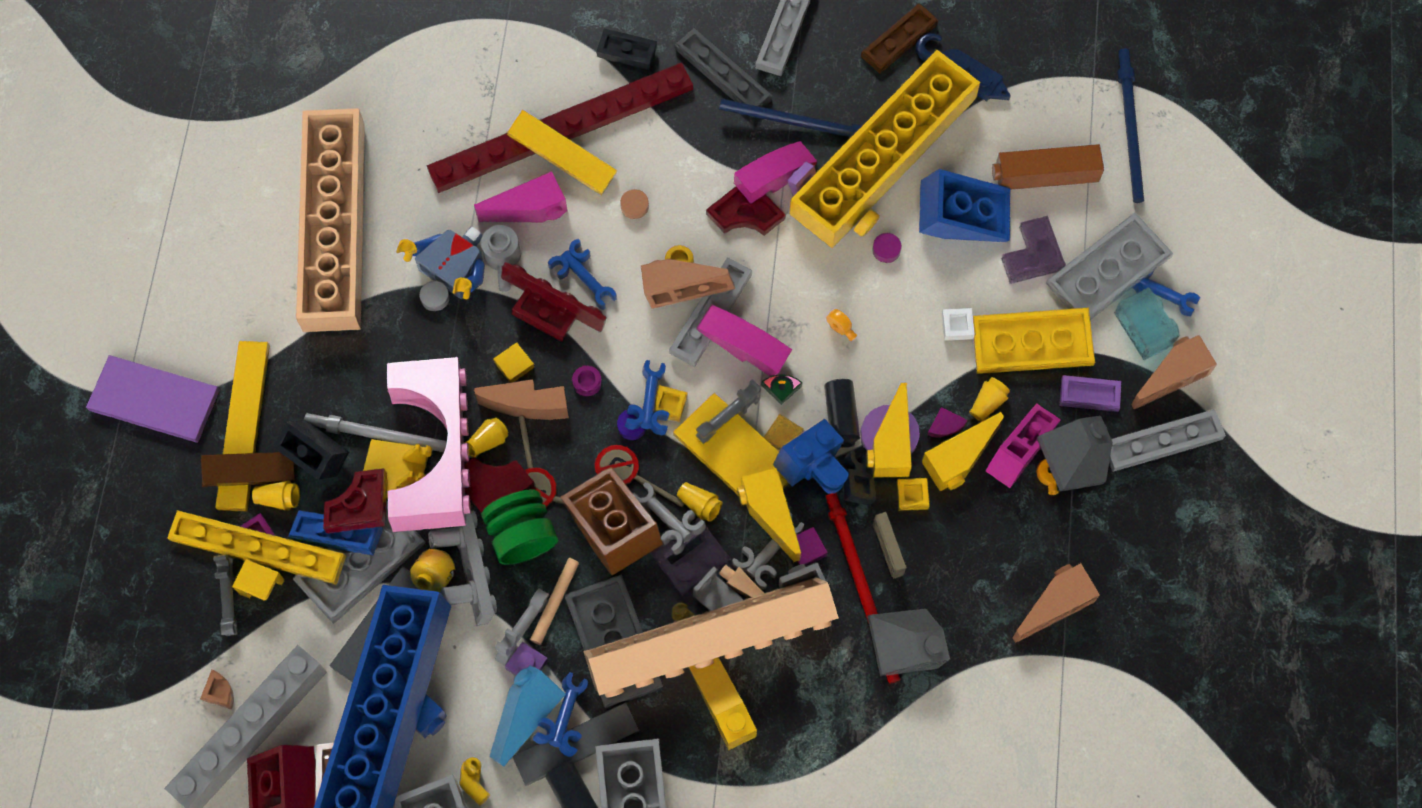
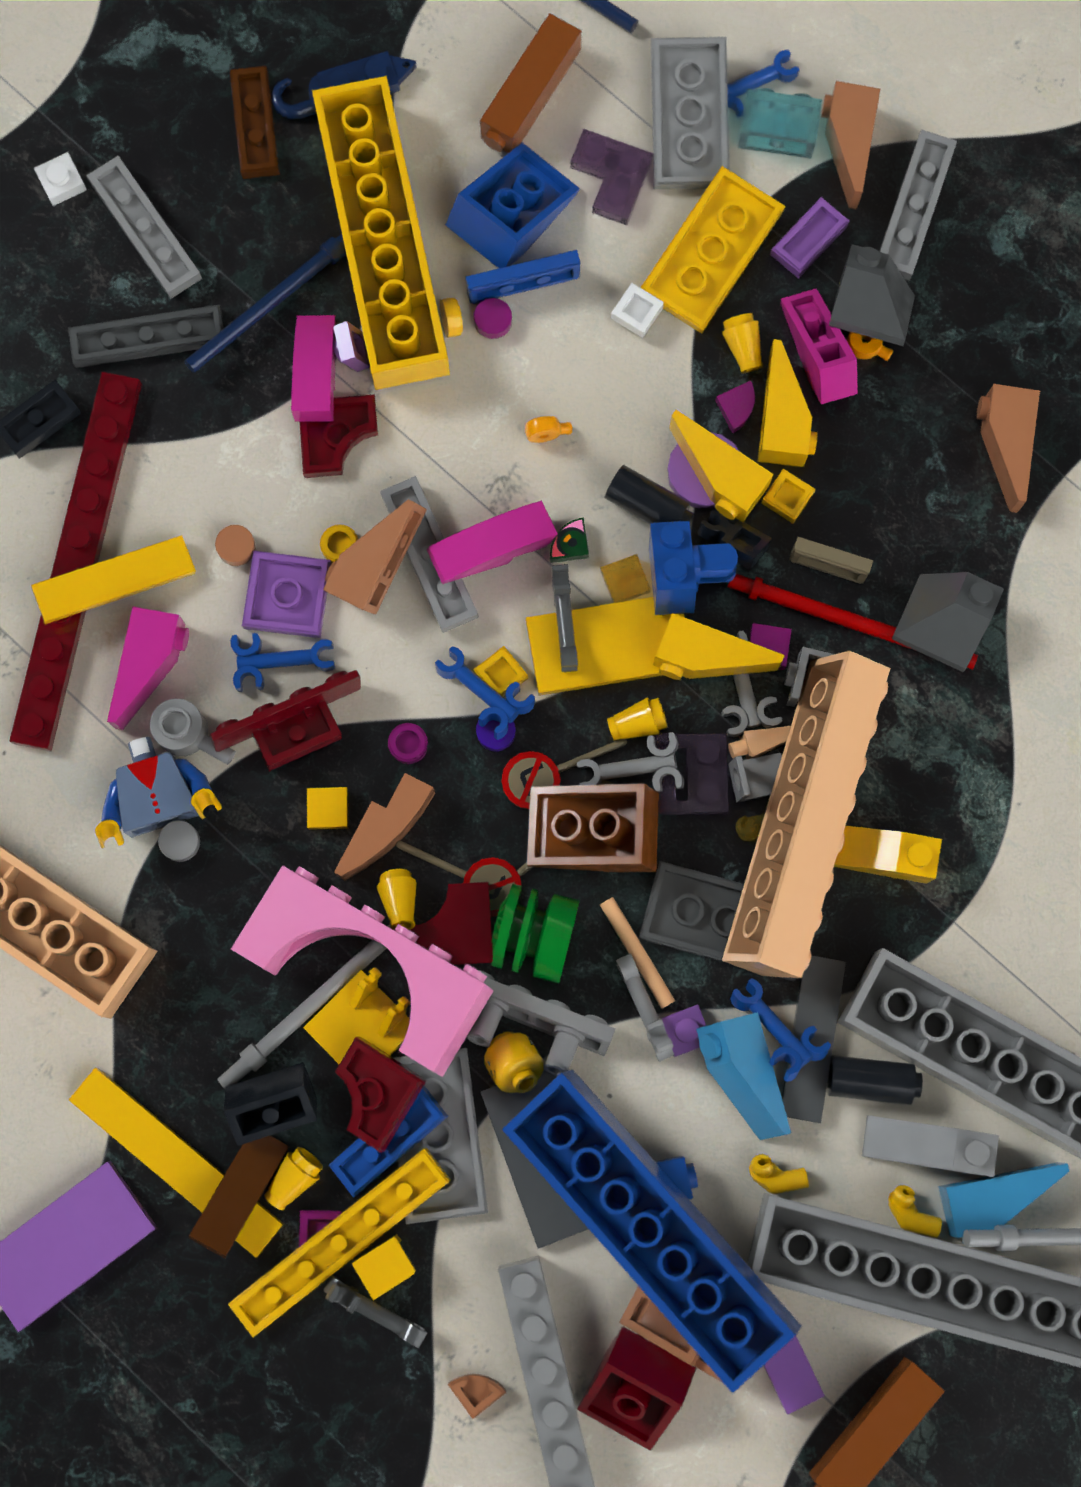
camera: 55 degrees left, 10 degrees up
(624, 251) = (286, 594): none -> medium lavender tile
(925, 245) = (523, 277): none -> blue tile

